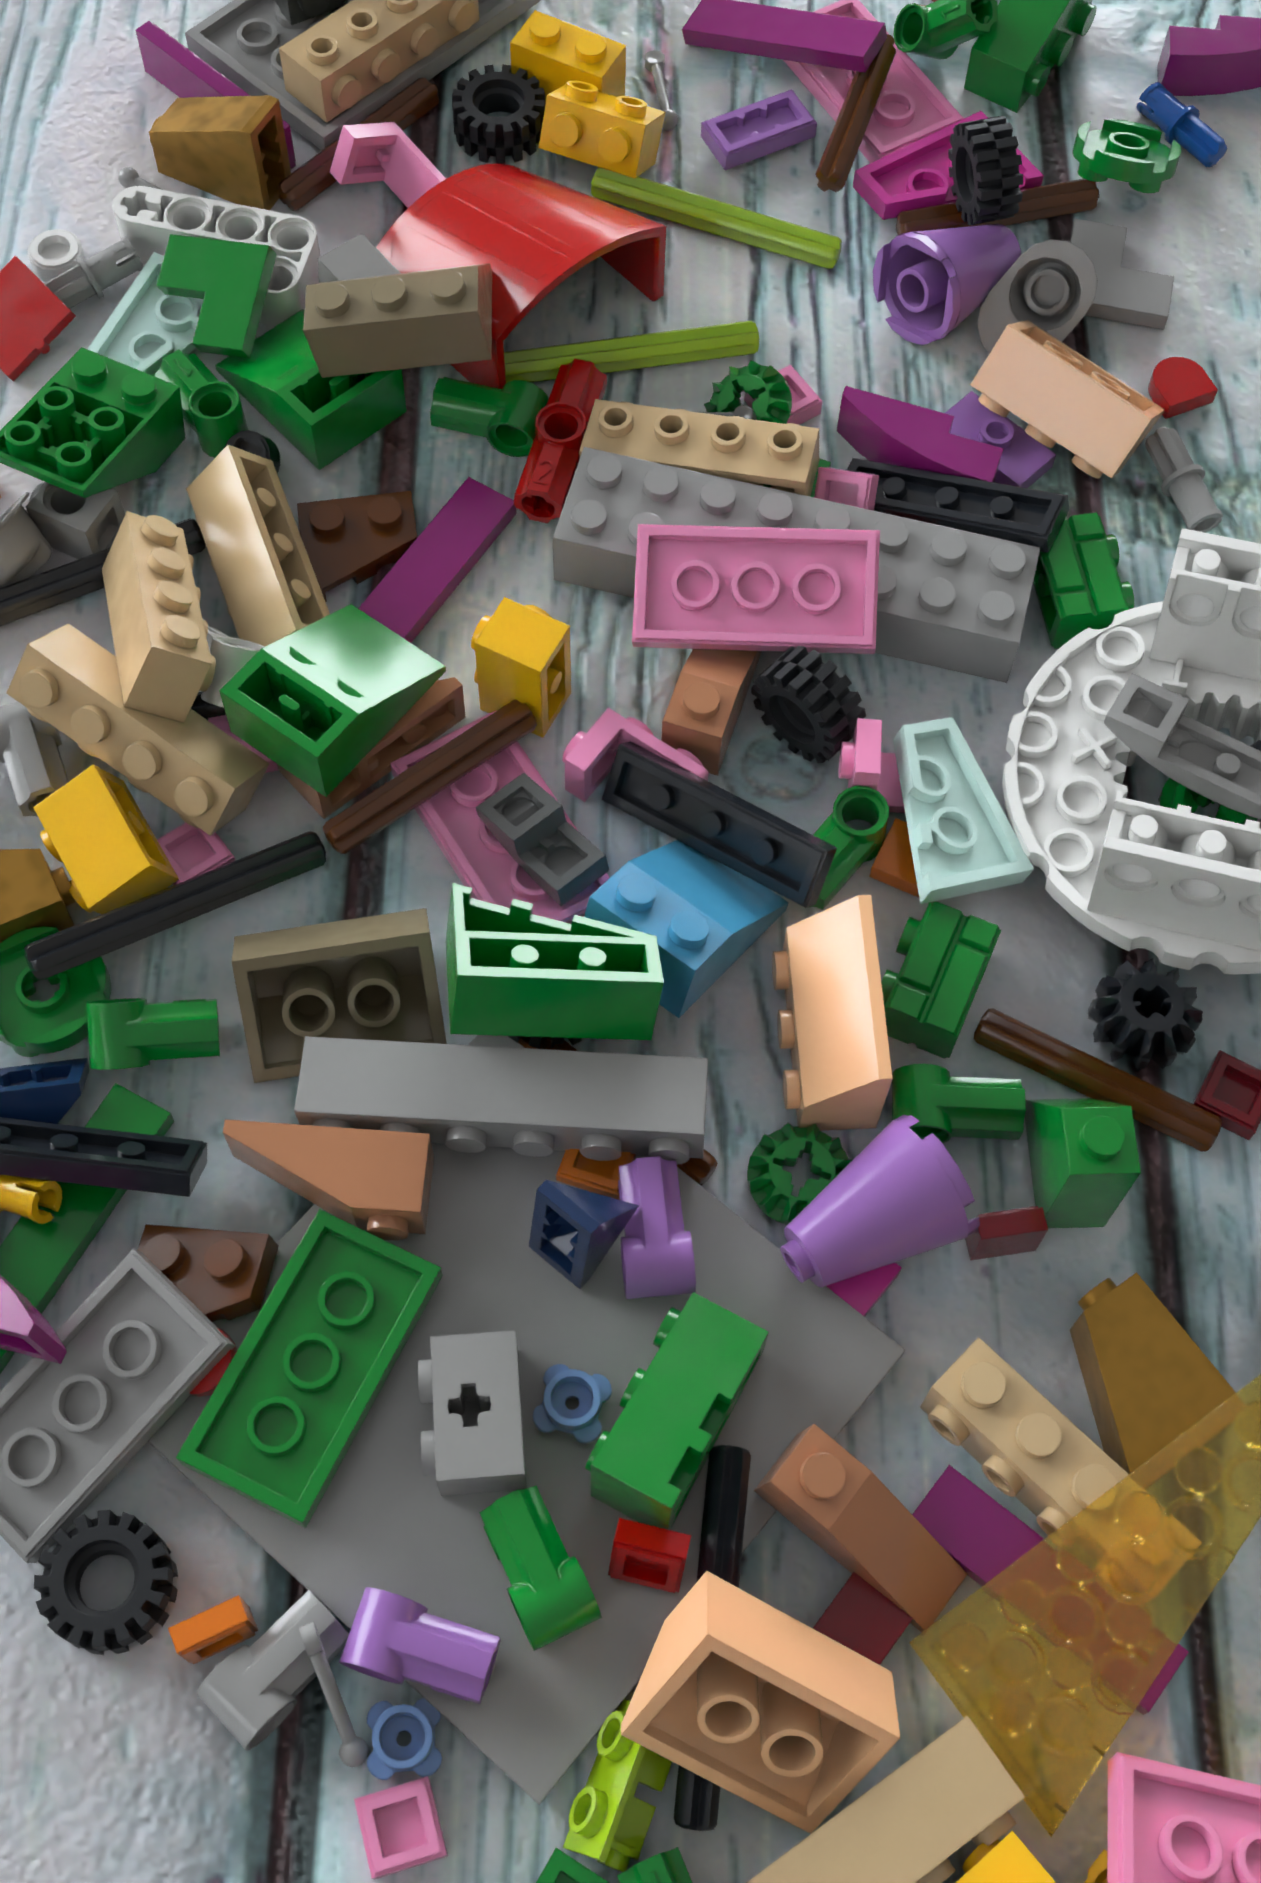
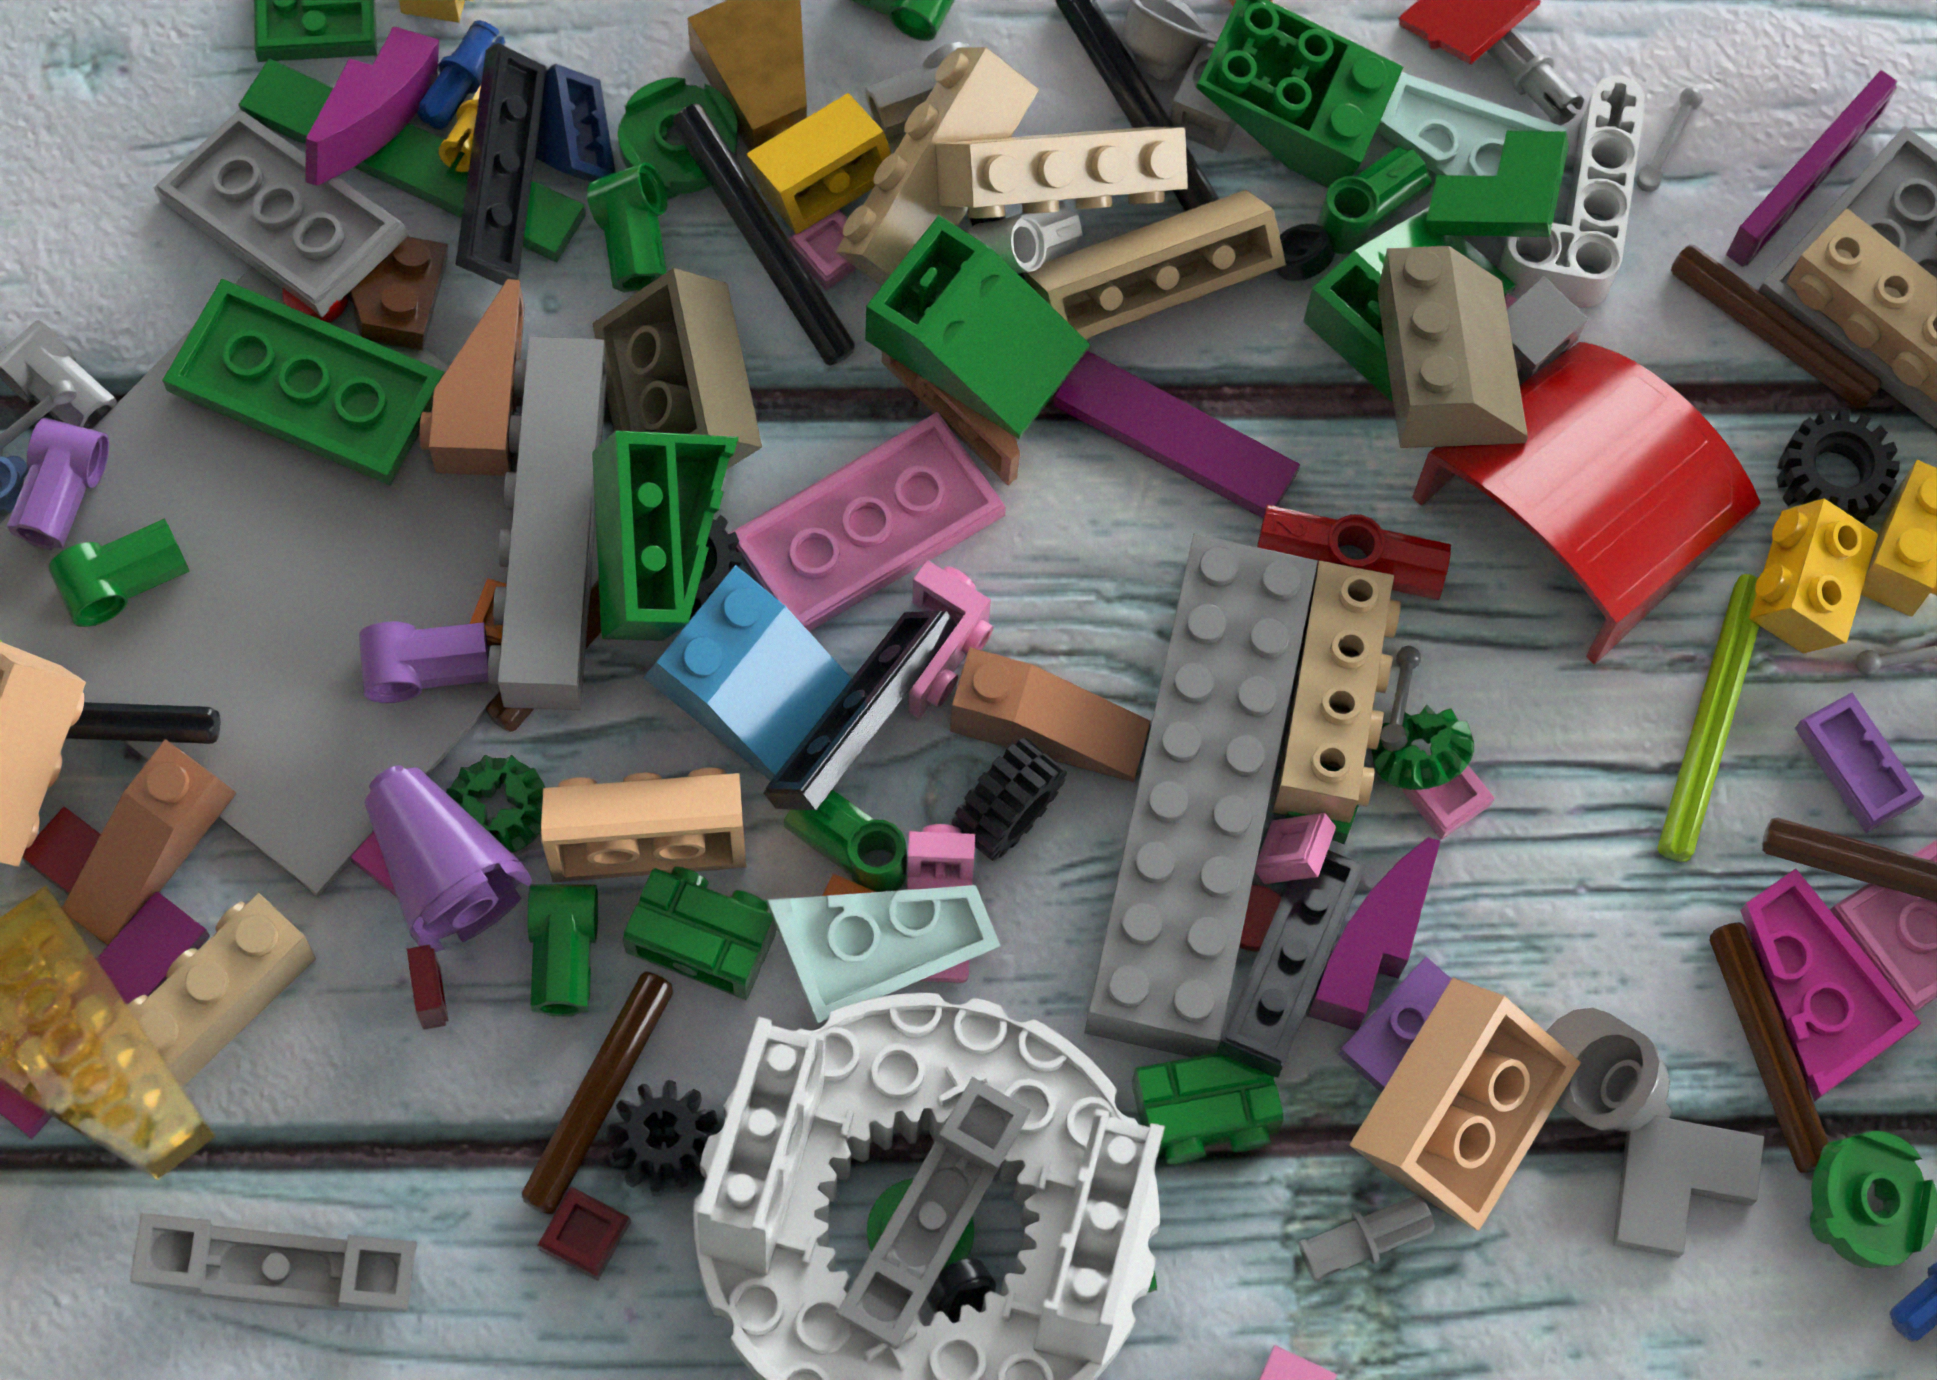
camera: 85 degrees right, 5 degrees up
(54, 253) = (1569, 41): white tile -> none
(63, 1572) = (126, 218): black tyre -> none
(213, 1630) = (86, 330): orange tile -> none
(224, 147) = (1723, 180): pearl gold slope -> none
(356, 535) = (1215, 359): reddish brown wing -> none
(384, 154) = (1746, 337): bright pink bracket -> none
(429, 776) = (912, 443): reddish brown axle -> none
(480, 1456) = (222, 522): light grey brick -> none
(500, 415) = (1388, 479): green piece -> none
(524, 659) = (1036, 515): yellow brick -> none
(541, 840) = (845, 551): dark grey slope -> none
(566, 1383) = (256, 582): medium blue plate -> none
(576, 1228) = (407, 579): dark blue slope -> none
(636, 351) = (1495, 624): lime axle -> none
(648, 1555) = (125, 658): red tile -> none
(675, 1412) = (242, 671): green wedge -> none
(756, 588) = (1132, 734): bright pink tile -> none
(940, 277) = (1637, 970): medium lavender cone -> none
(985, 170) = (1775, 997): black tyre -> none
(1080, 1159) = (500, 1043): green slope -> none
(1141, 1371) = (279, 1109): pearl gold slope -> none
(1180, 386) = (1516, 1250): red tile -> none

